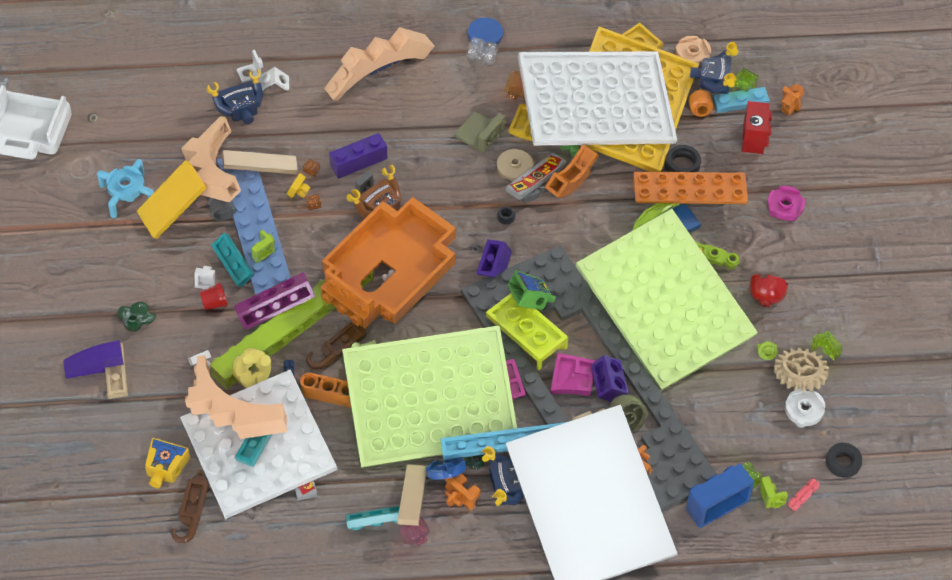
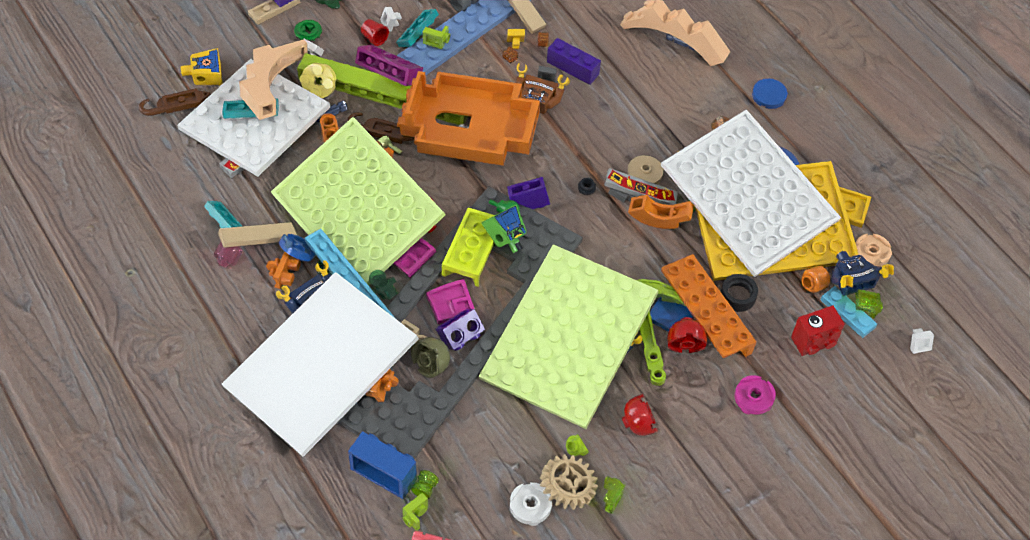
camera: 60 degrees right, 0 degrees up
(164, 350) = (312, 26): none -> green gear
(480, 131) = (661, 132): olive bracket -> none
(482, 51) = (744, 96): clear wheel -> none
(499, 284) = (503, 205): none -> green piece
(533, 415) = (383, 285): none -> clear green hips
(710, 217) = (687, 335): none -> red cylinder
(792, 99) = (873, 348): orange hips -> none
(796, 67) = (921, 341): none -> white tile

